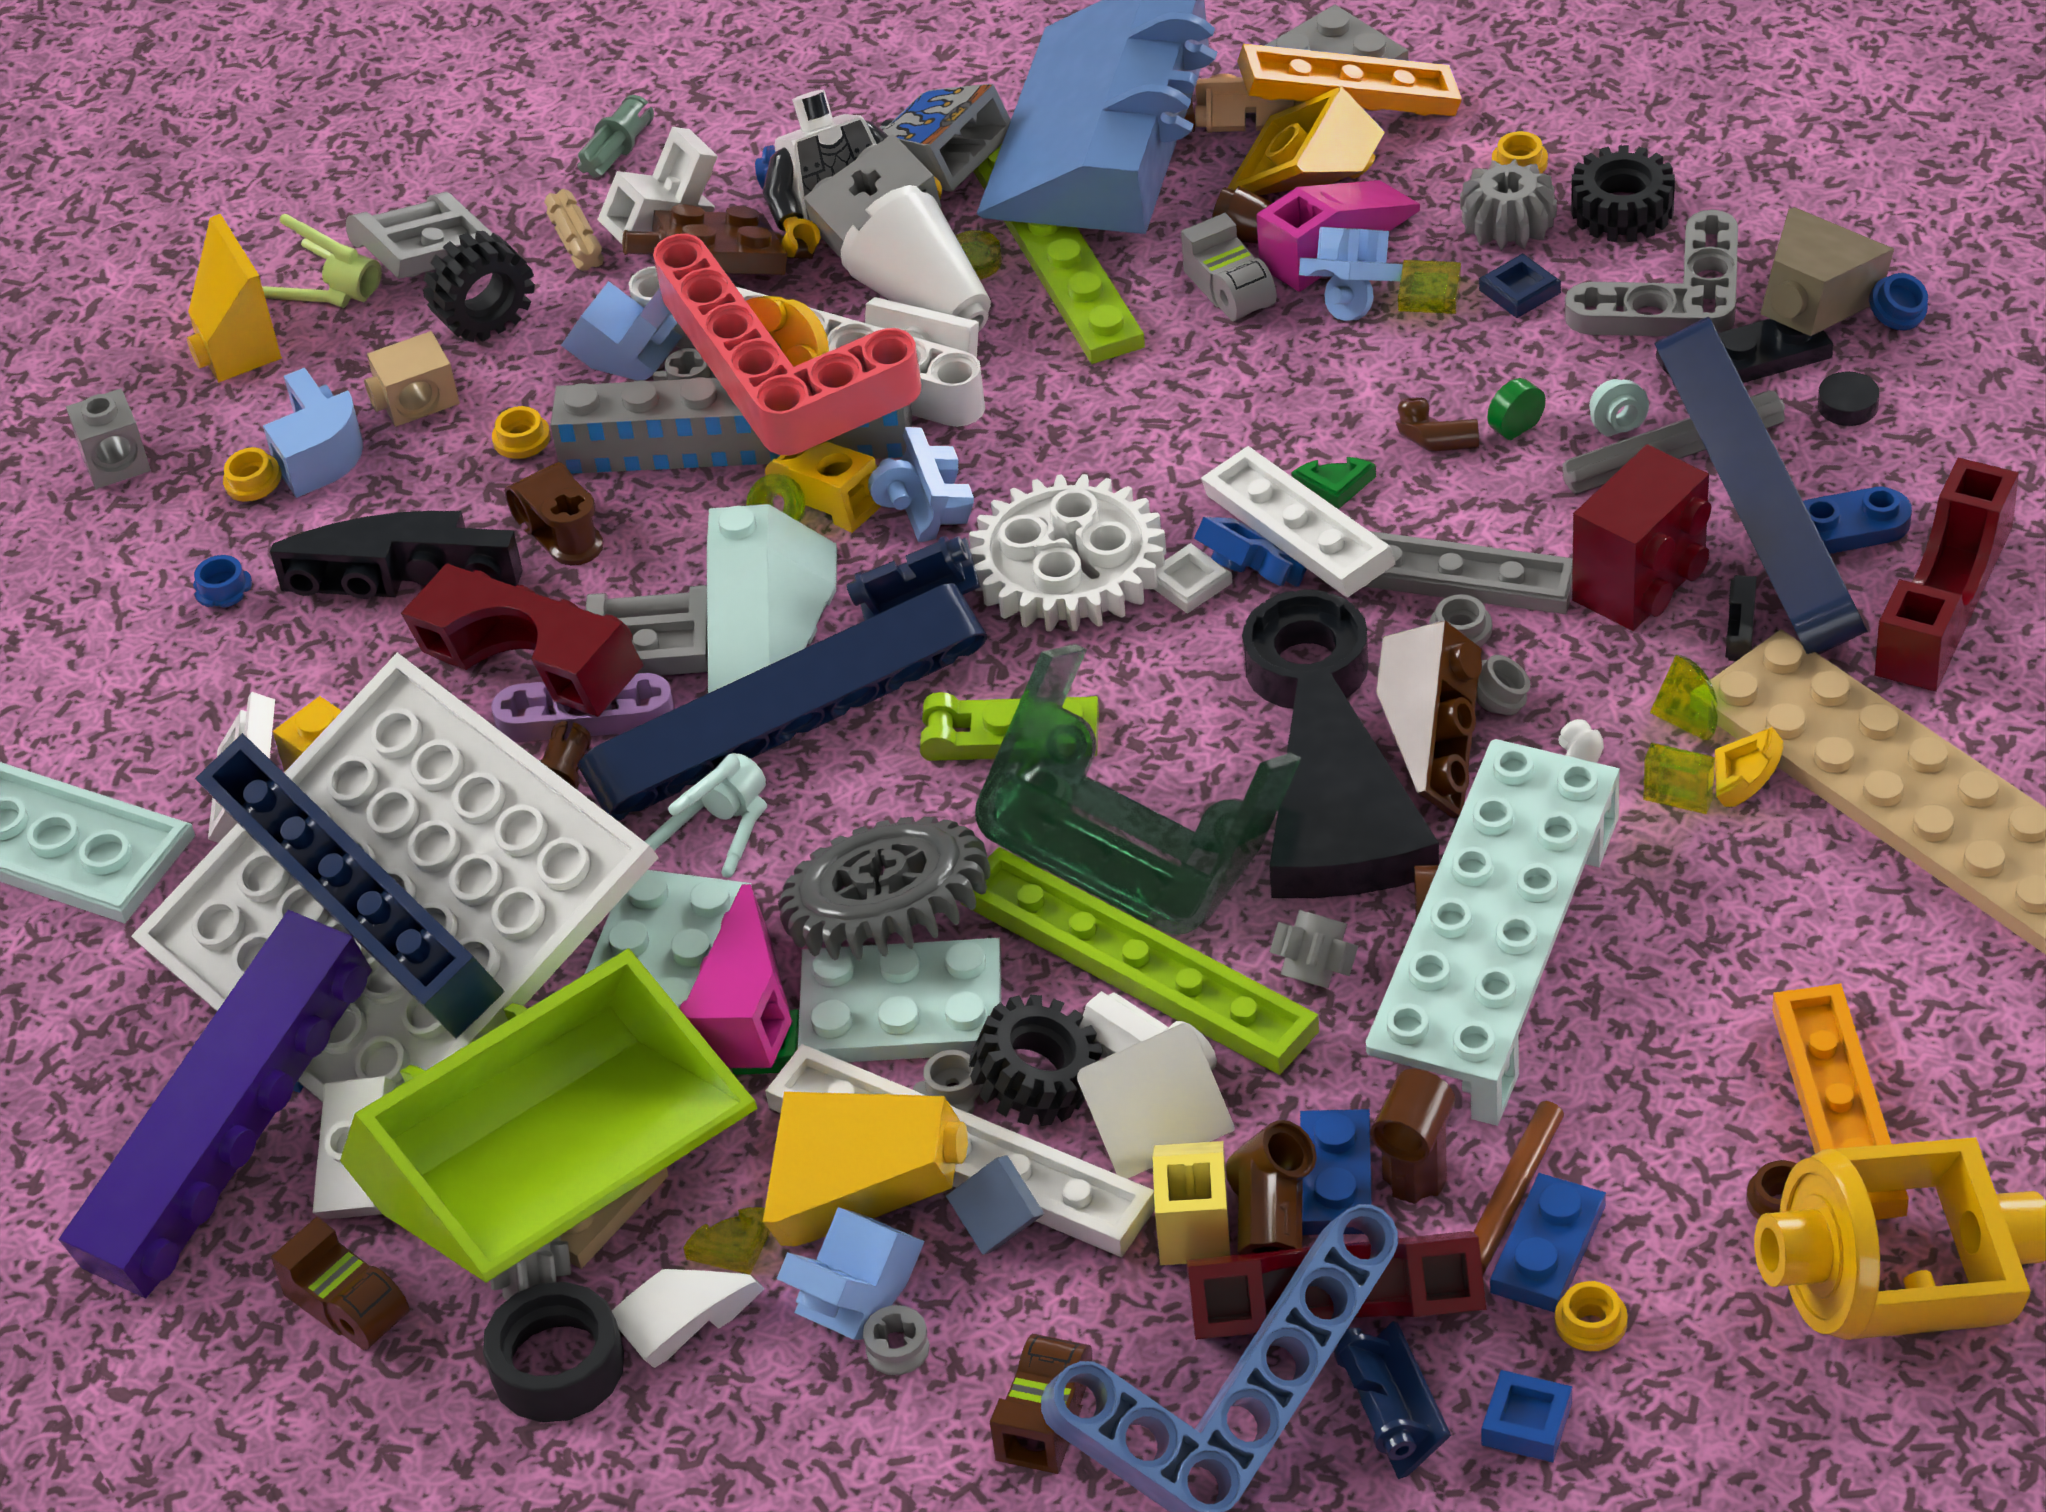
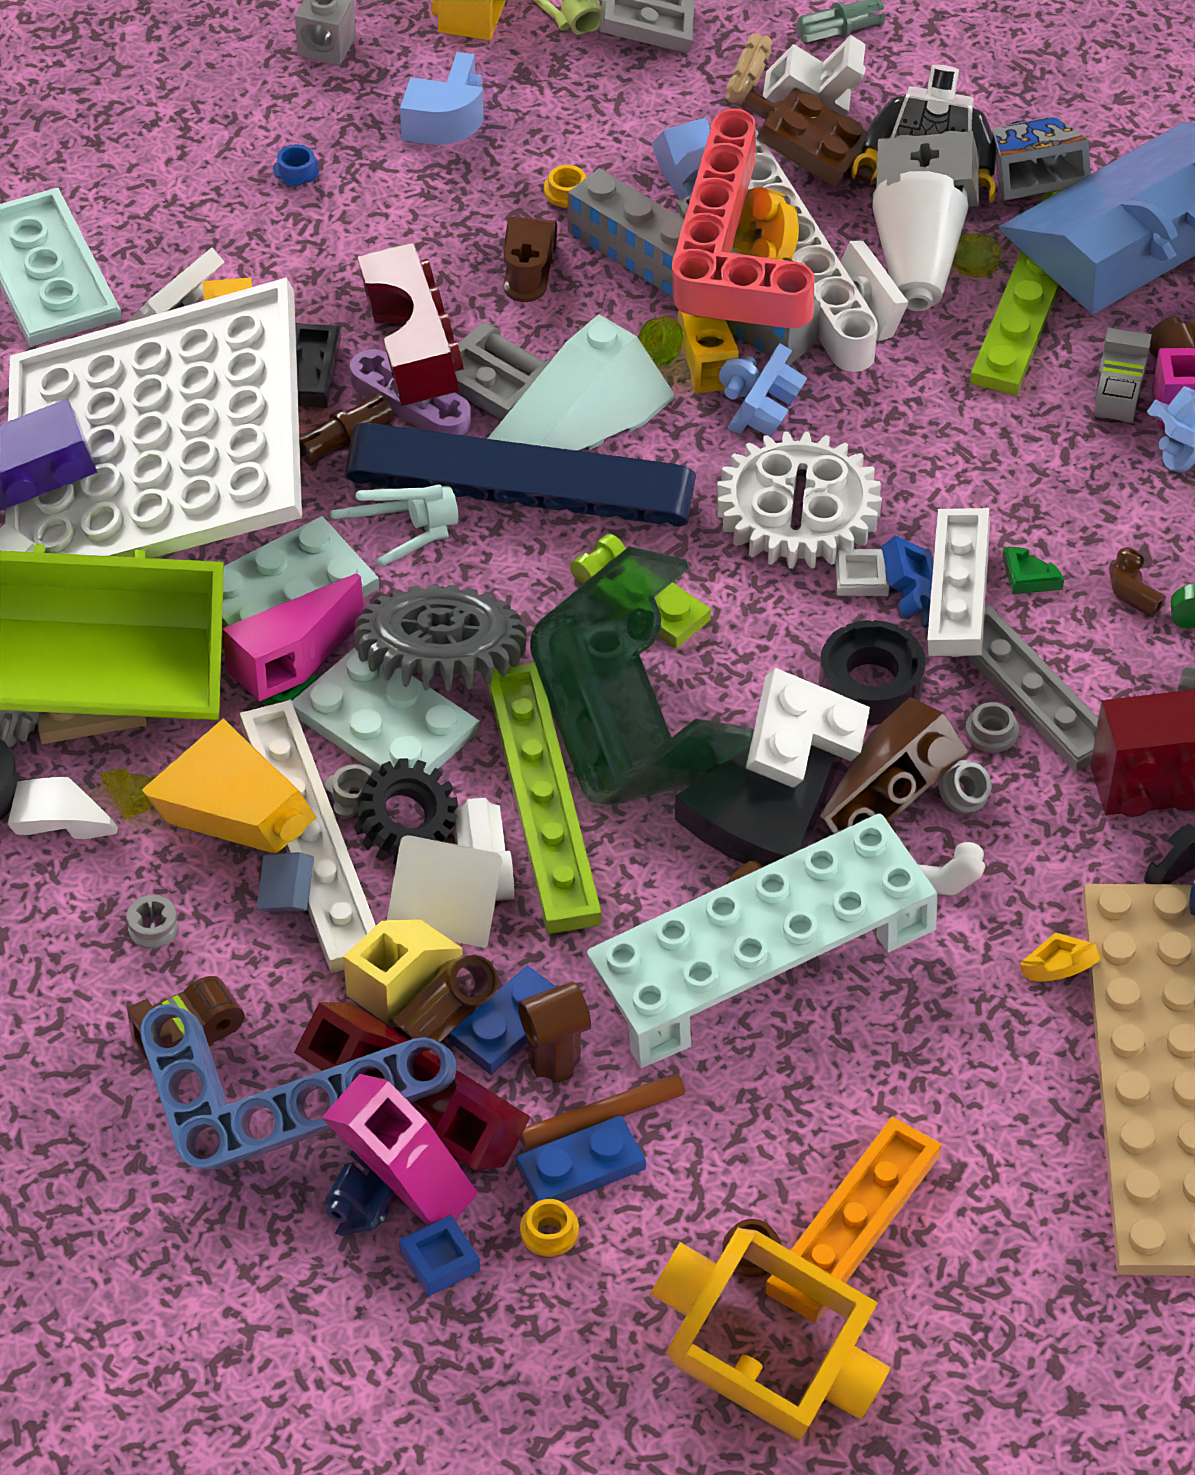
camera: 35 degrees right, 5 degrees up
(251, 474) = (383, 106): yellow plate -> none
(350, 886) = (114, 409): dark blue brick -> none
(380, 551) = (404, 211): black slope -> none
(411, 379) = (538, 105): tan brick -> none
(462, 269) = (639, 49): black tyre -> none
(855, 1273) = (171, 862): light blue brick -> none
(925, 569) = (698, 451): dark blue hinge -> none
(1313, 949) = (646, 869): light grey gear -> none
(1323, 723) = (800, 715): none -> white plate
(1412, 1328) = (400, 1148): none -> dark pink slope
(1678, 778) = (1002, 932): clear neon green tile -> none
(1687, 699) = (1071, 884): clear neon green tile -> none

